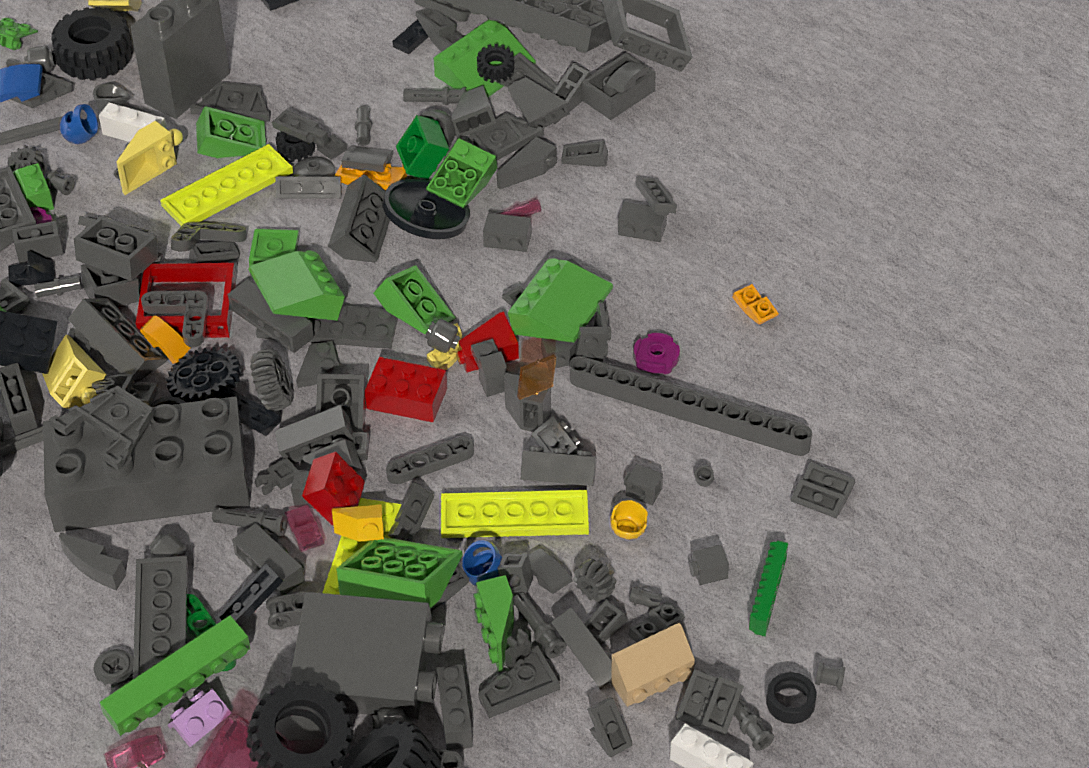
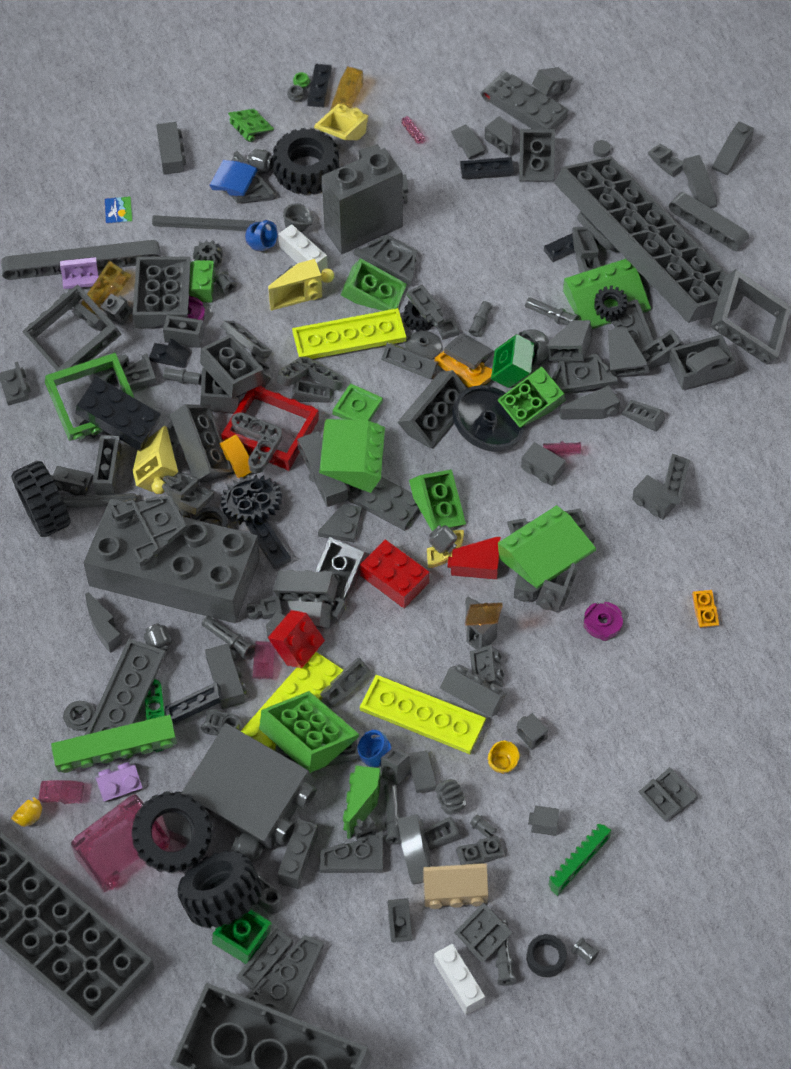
camera: 25 degrees right, 10 degrees up
(271, 379) = (296, 526): dark grey gear -> none
(359, 522) = (301, 676): yellow slope -> none
(432, 463) = (384, 637): dark grey beam -> none
(491, 367) = (465, 580): dark grey brick -> none
(691, 406) = (607, 685): dark grey beam -> none
(705, 472) = (585, 740): dark grey hinge -> none

